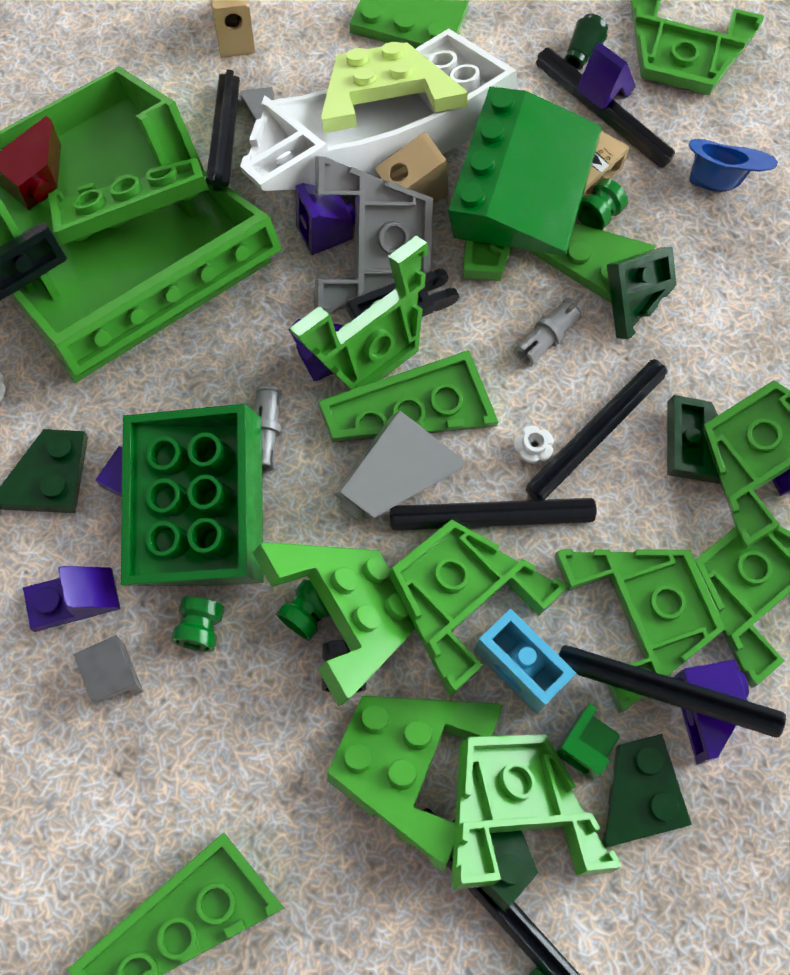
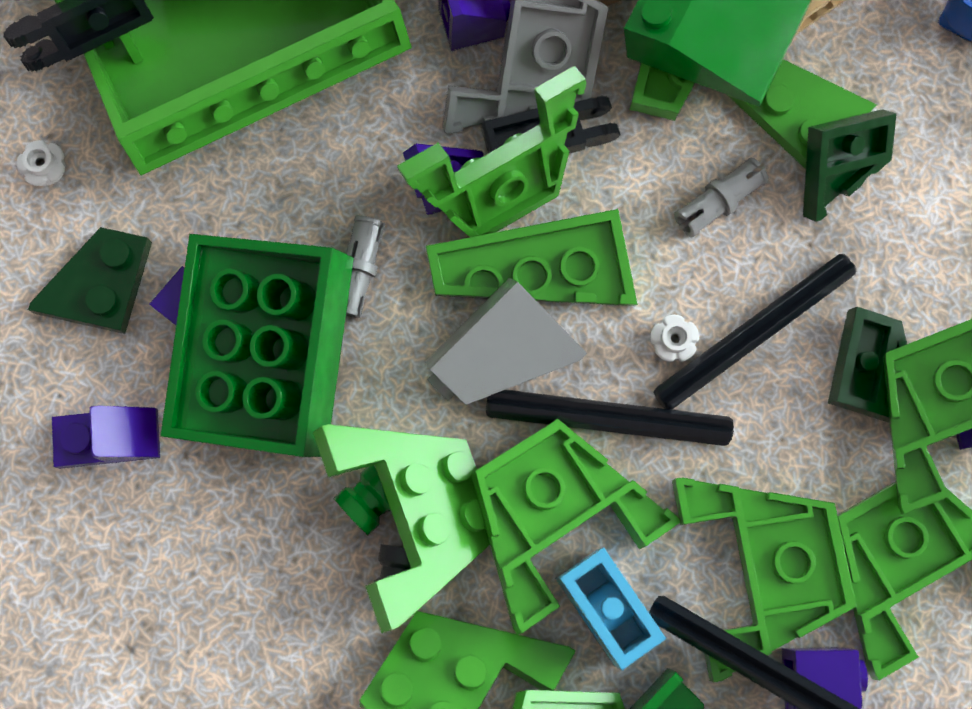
camera: 10 degrees right, 10 degrees up
(107, 670) = (133, 534): flat silver panel -> none
(197, 627) = (241, 498): green wheel -> none
(605, 201) = (825, 36): green wheel -> none

